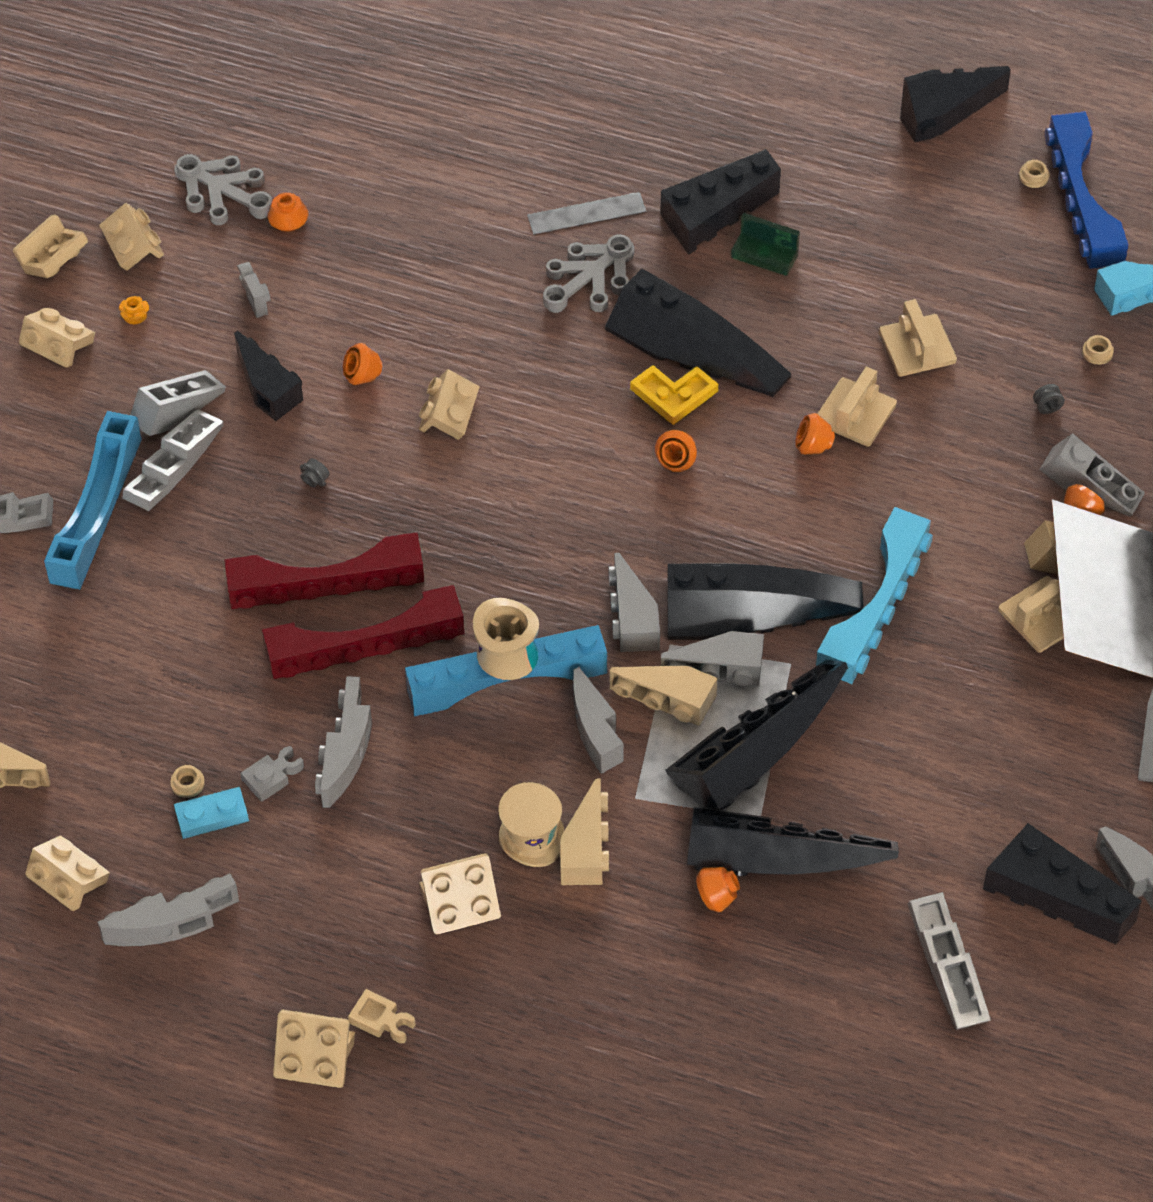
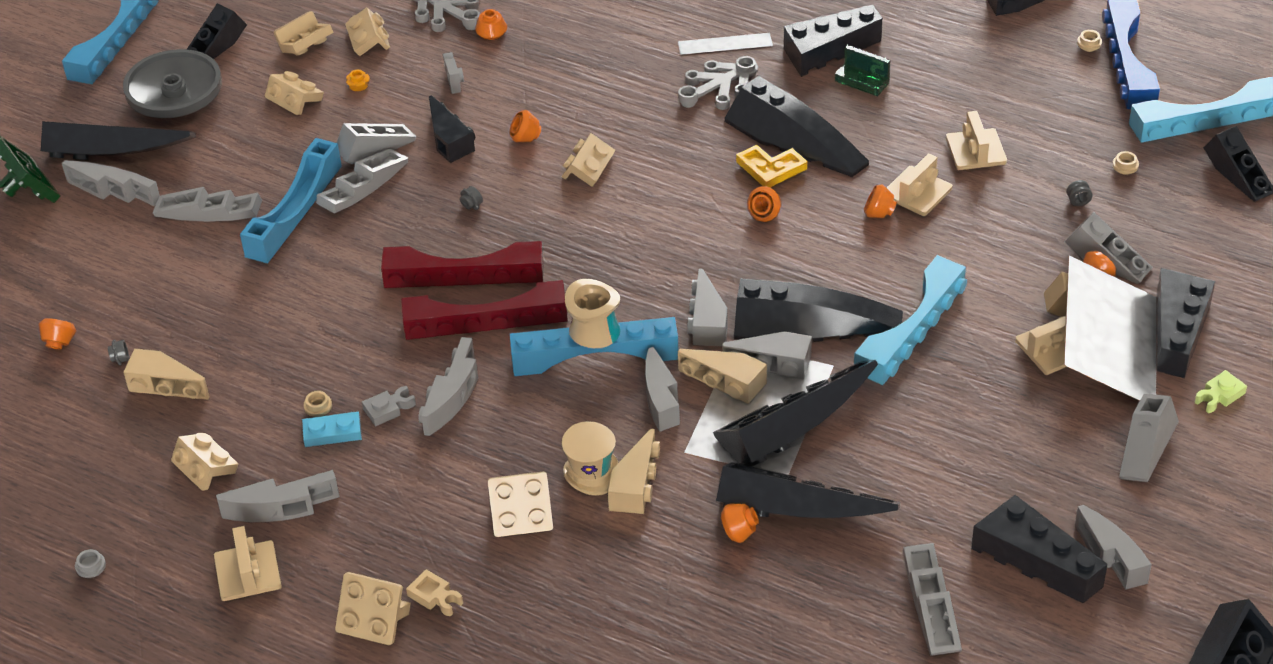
camera: 10 degrees right, 10 degrees down
(152, 1009) = (247, 568): none -> tan bracket

